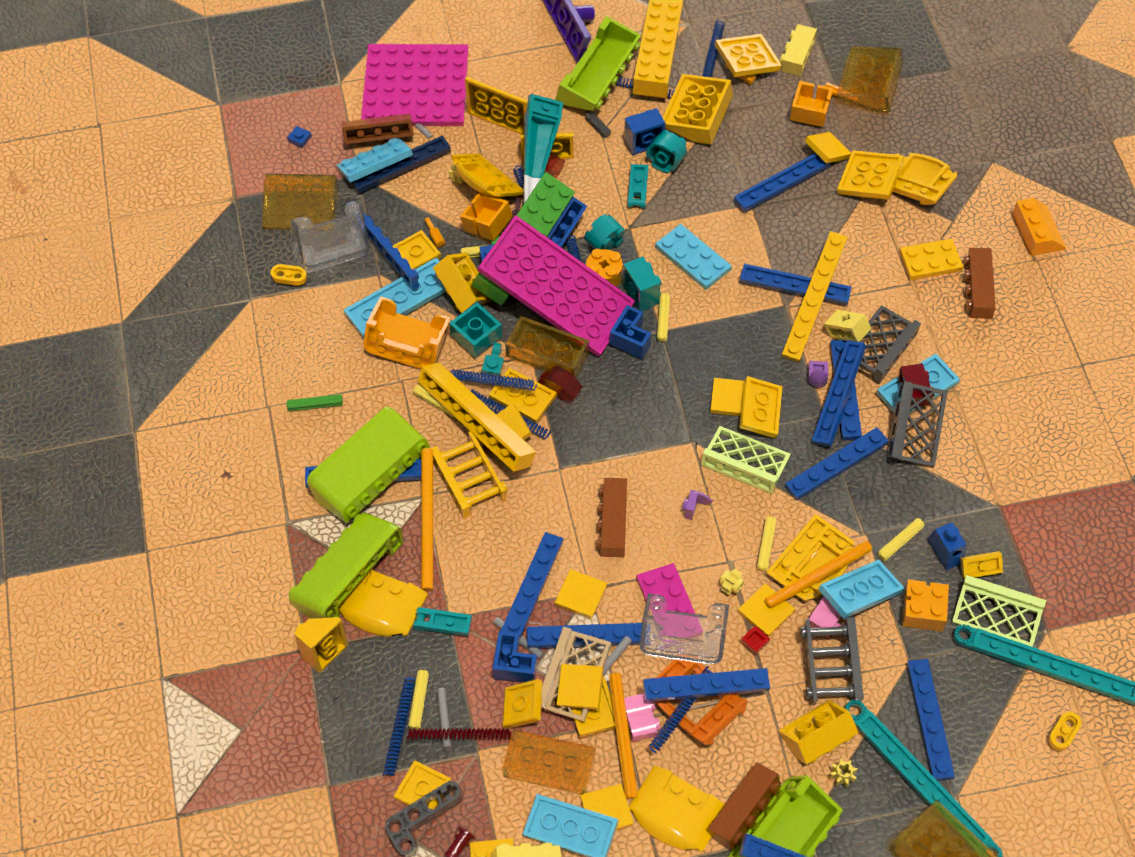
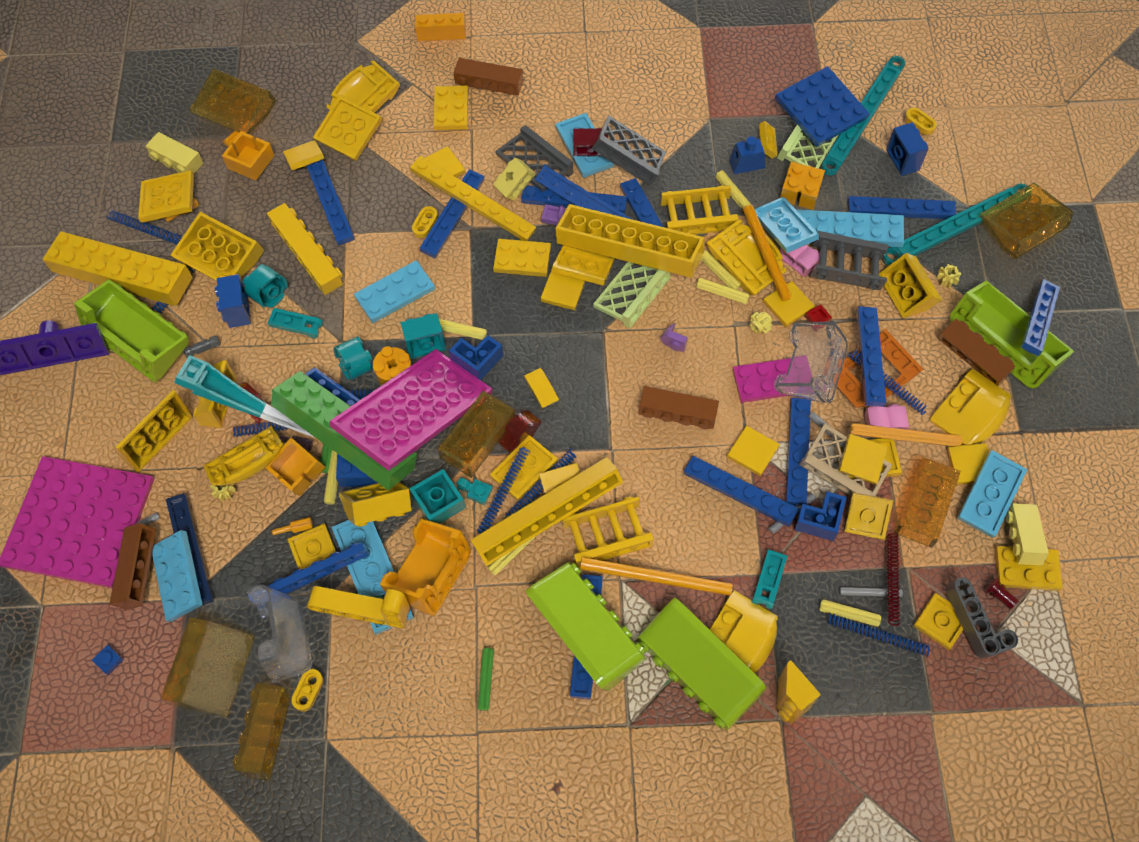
camera: 80 degrees left, 5 degrees up
(246, 248) = (262, 732): none -> clear yellow brick
(358, 300) = (388, 611): none -> yellow beam
(610, 395) = (541, 388): none -> yellow slope
(720, 174) = (305, 249): none -> yellow brick
(761, 354) = (522, 257): none -> yellow plate
(779, 262) = (424, 223): none -> yellow plate
(779, 549) = (720, 271): none -> light yellow axle
(795, 440) = (630, 240): none -> yellow brick
(848, 520) = (700, 225): none -> yellow fence
(854, 266) = (447, 161): none -> yellow tile
(881, 663) = (865, 226): none -> medium azure plate
(1008, 711) = (907, 149): none -> blue brick
(1041, 611) = (822, 106): none -> blue plate

